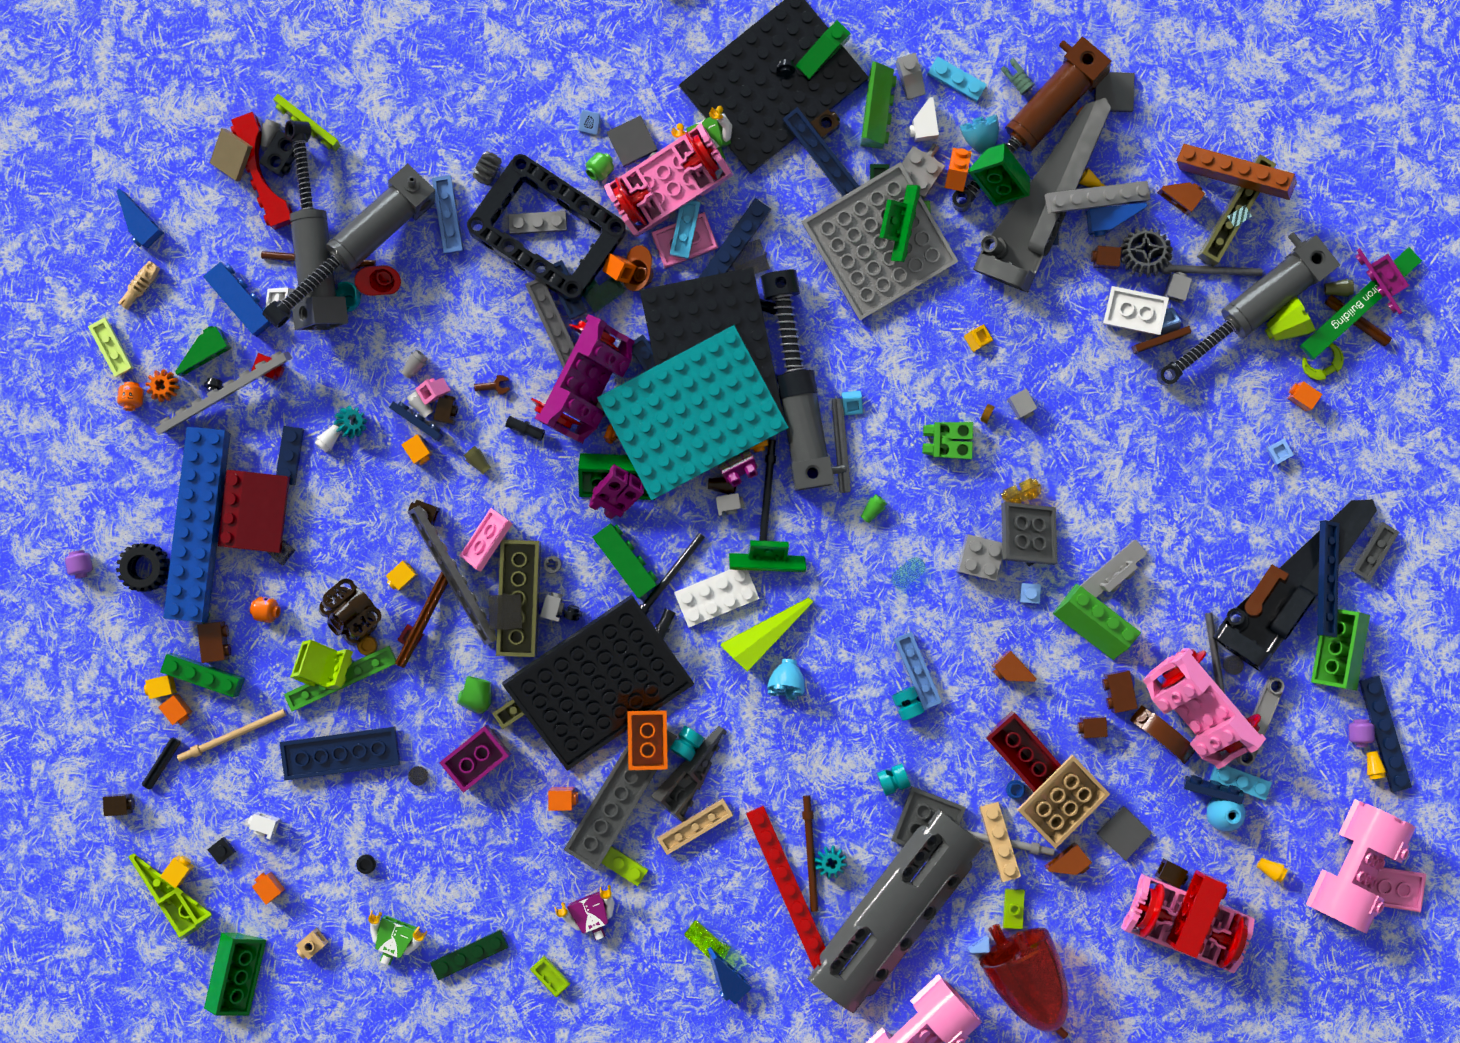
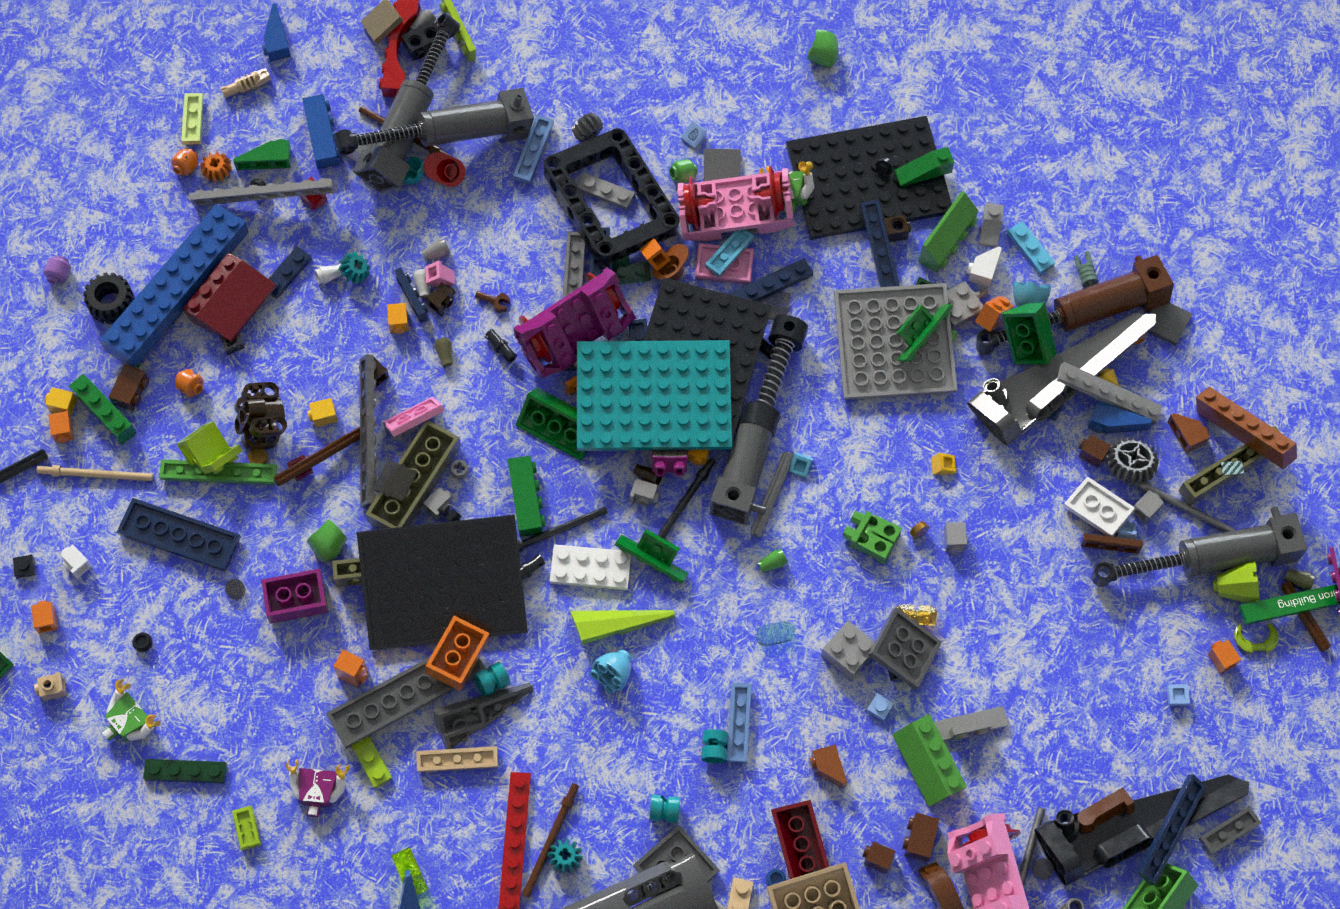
camera: 25 degrees right, 20 degrees down
(616, 492) = (542, 431): magenta hips -> none

